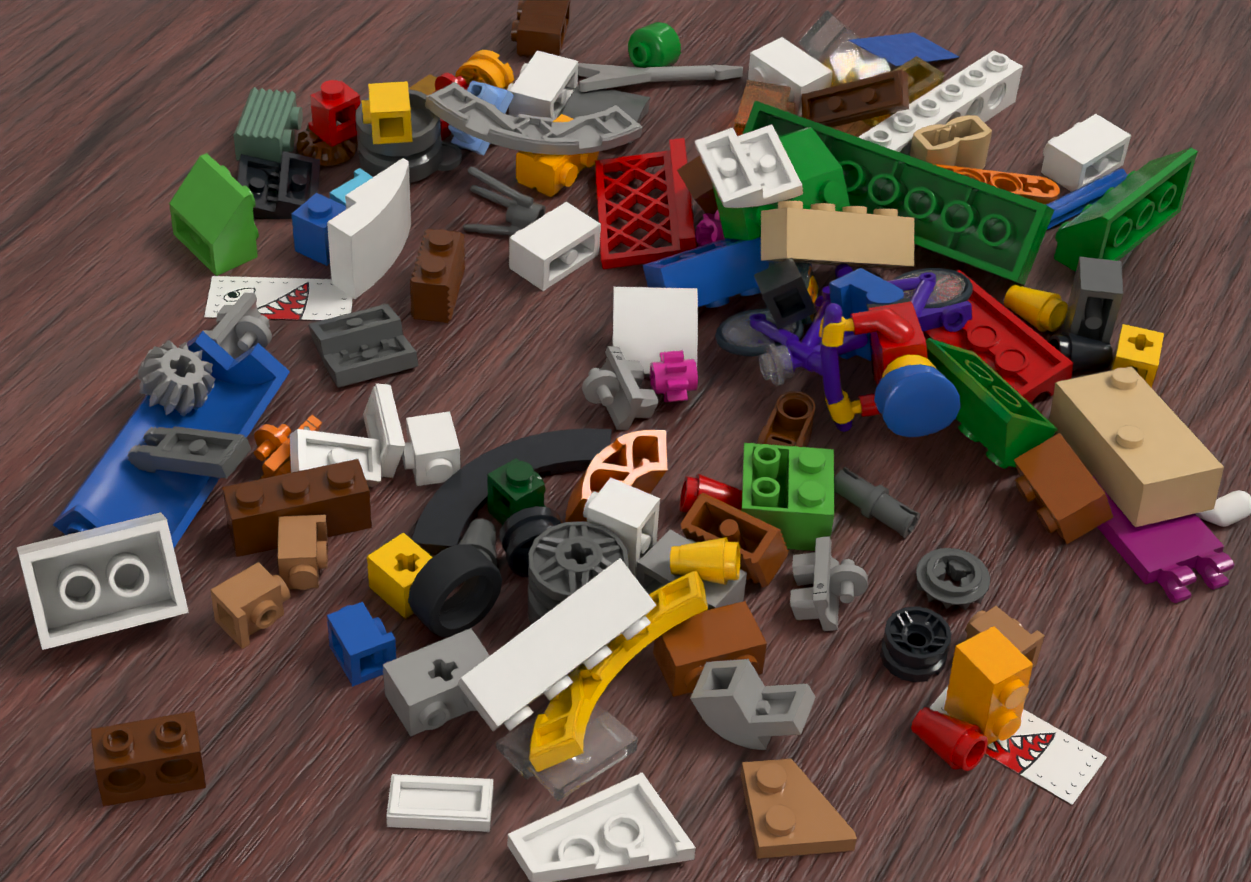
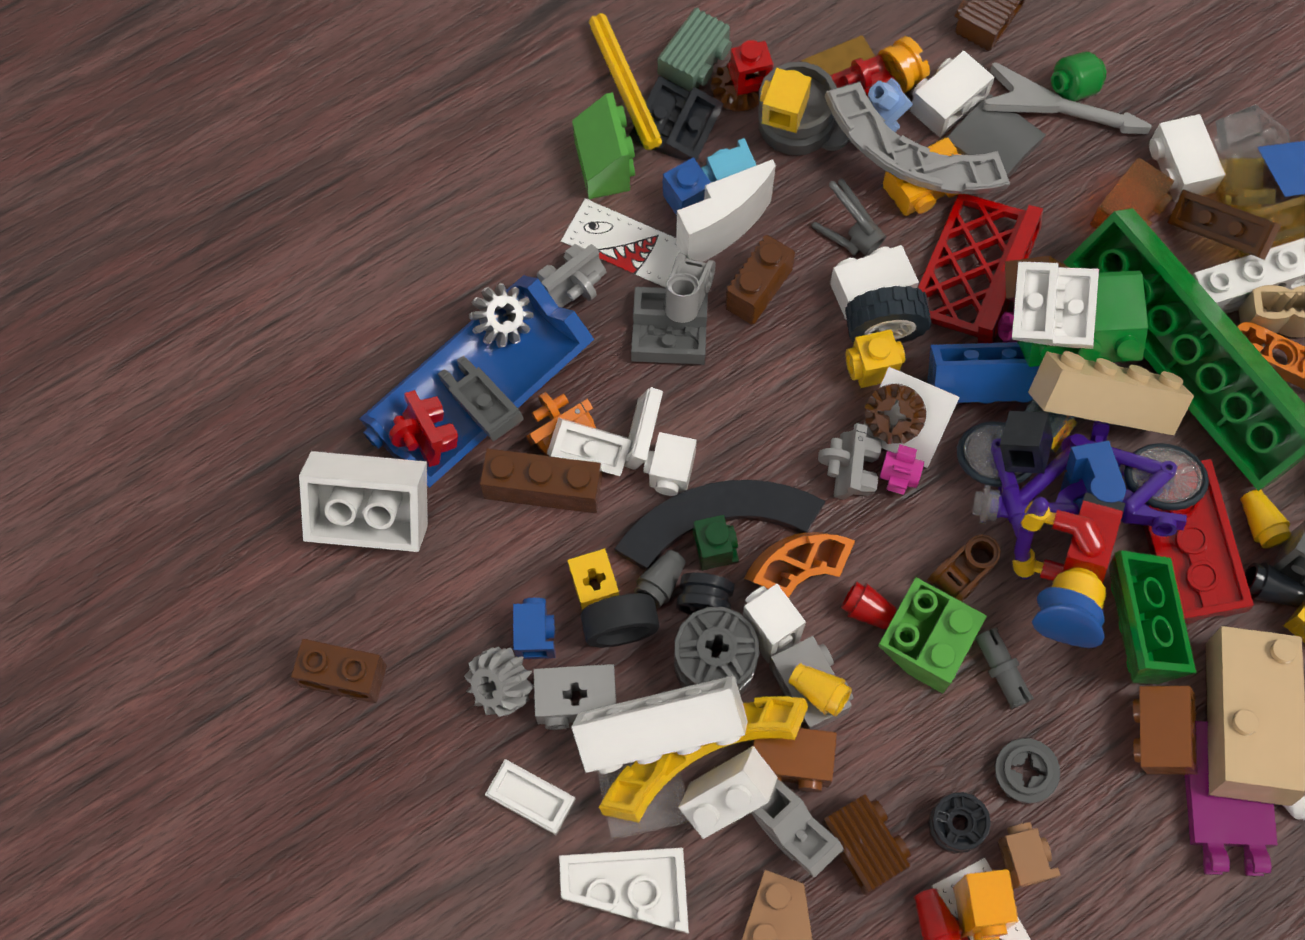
camera: 30 degrees right, 25 degrees up
(137, 495) = (417, 429): none -> red hips
(188, 154) = (625, 82): none -> yellow axle
(249, 602) = (469, 557): medium nougat brick -> none
(302, 550) = (527, 525): medium nougat brick -> none
(364, 696) = (499, 681): none -> light grey gear
(367, 300) = (687, 288): none -> light grey piece
(587, 256) = (888, 308): none -> black wheel
(589, 299) = (873, 356): none -> yellow brick
(658, 336) = (910, 405): none -> reddish brown gear
(664, 689) = (728, 792): none -> white brick
(760, 543) = (861, 664): dark orange brick -> none
(828, 582) = (922, 736): light grey hips -> none
(846, 702) = (867, 843): none -> reddish brown brick

